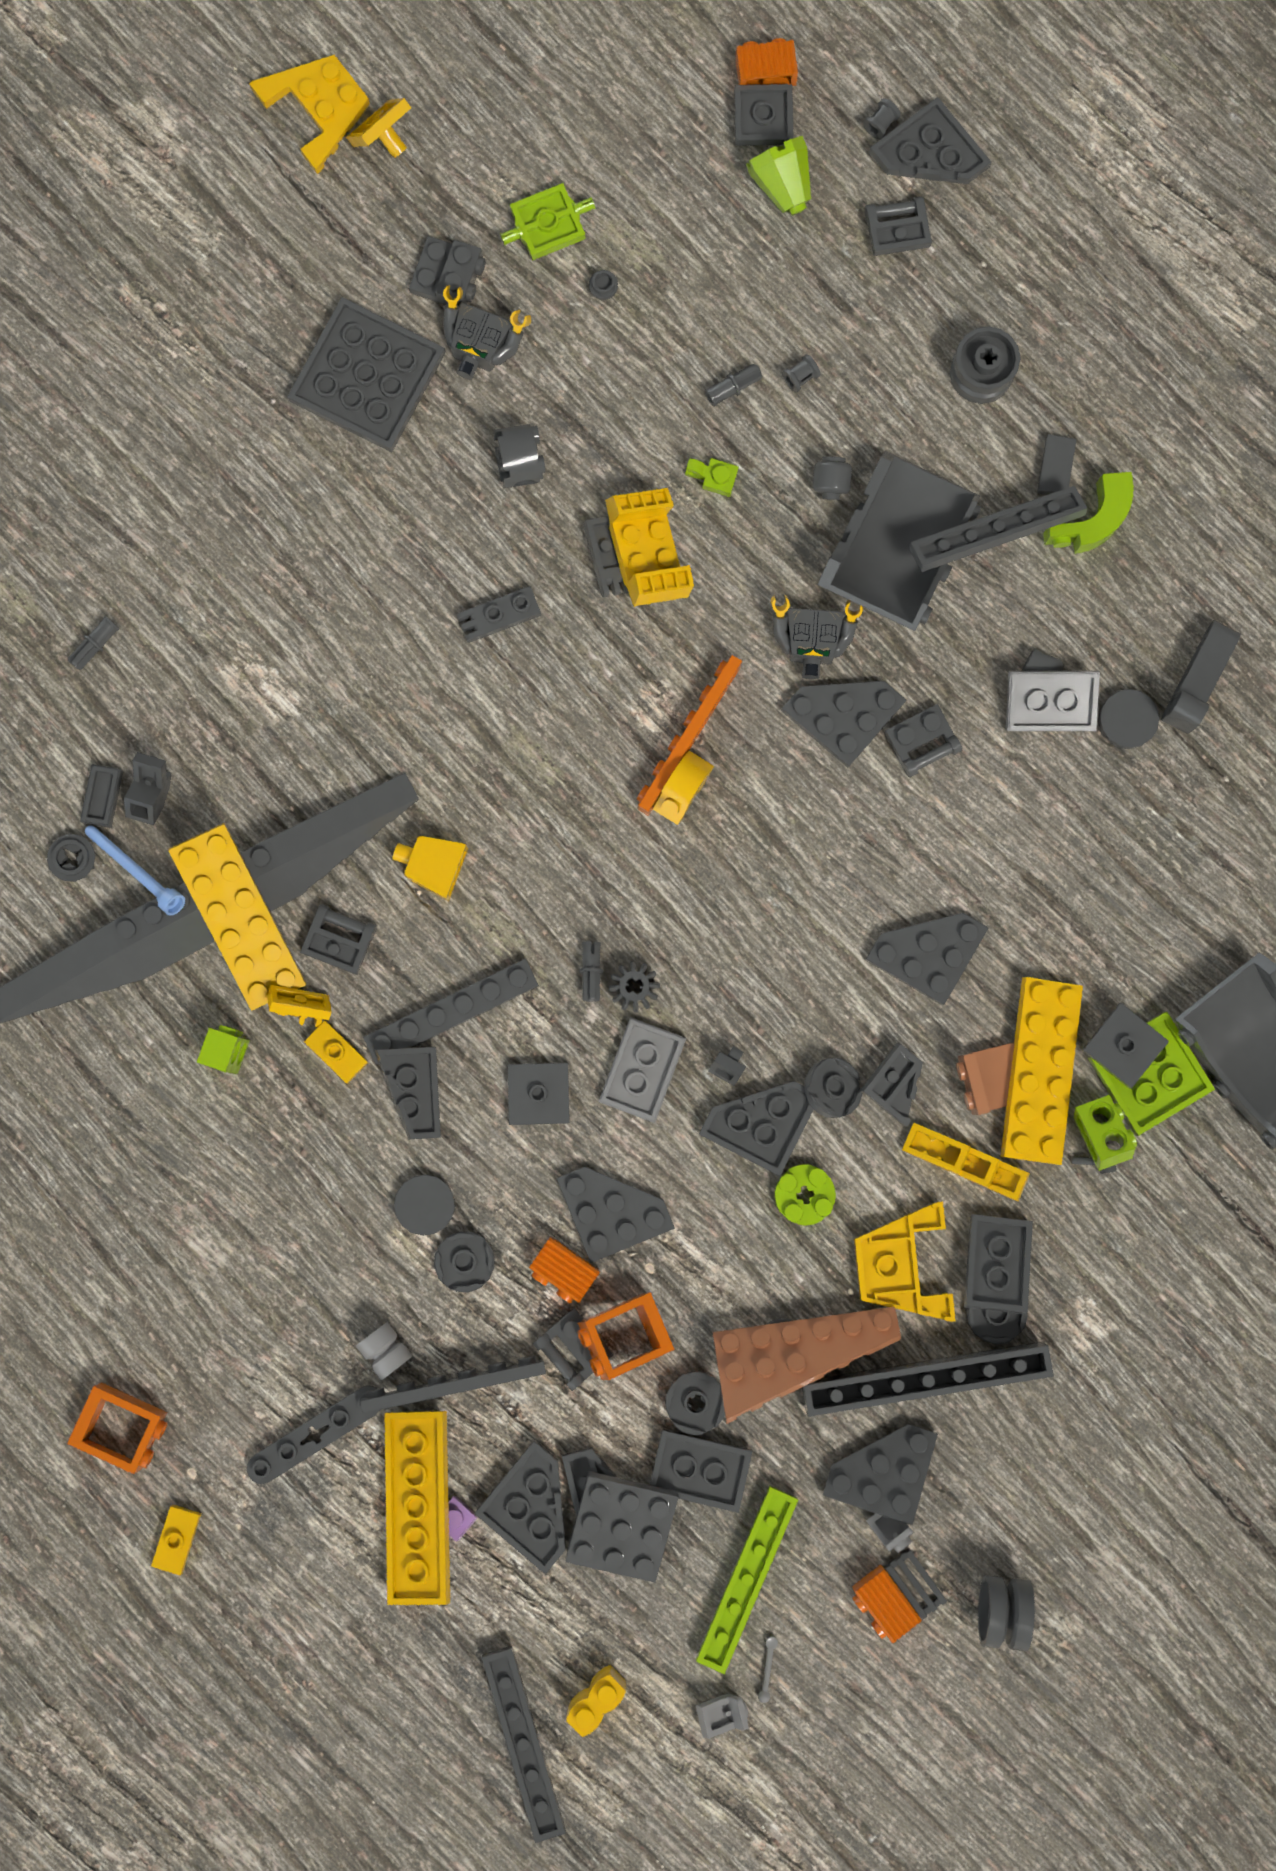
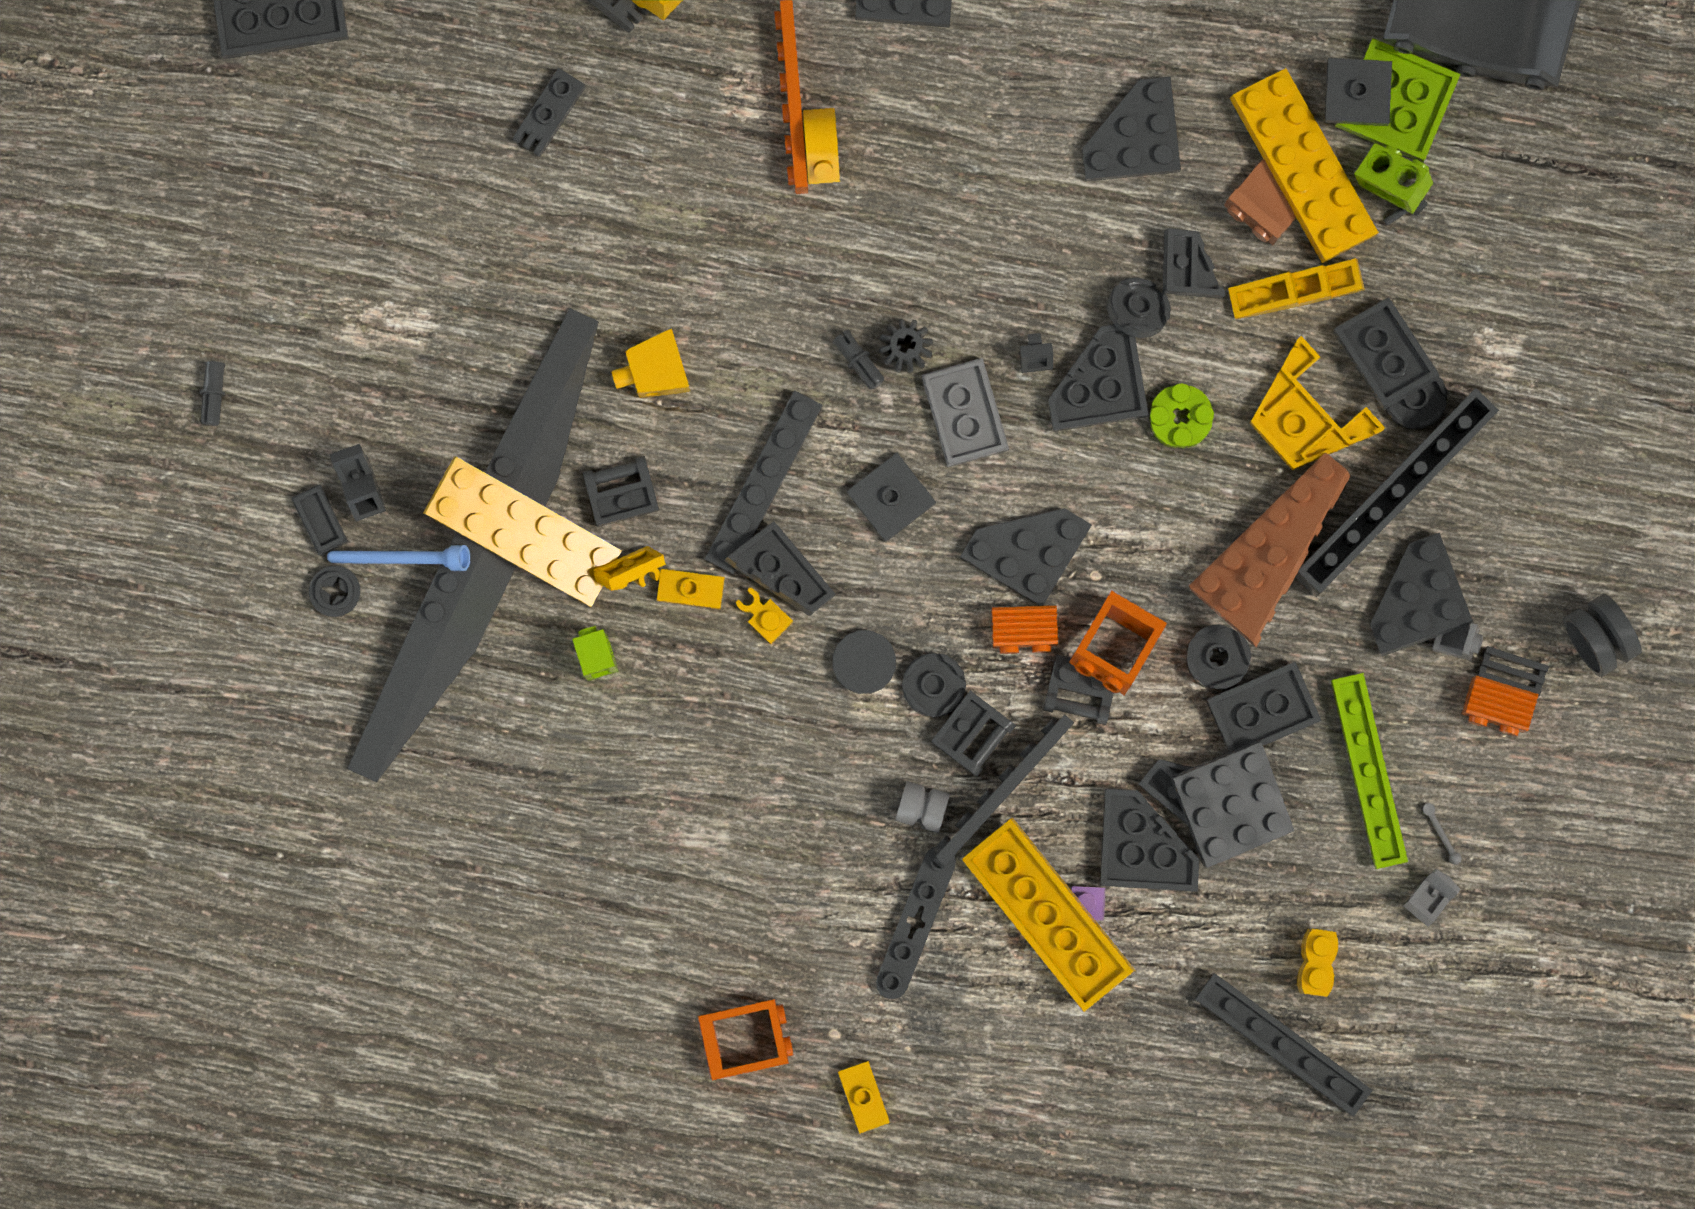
camera: 35 degrees left, 0 degrees up
(377, 1118) = (767, 618): none -> yellow plate
(461, 1312) = (963, 728): none -> dark grey plate

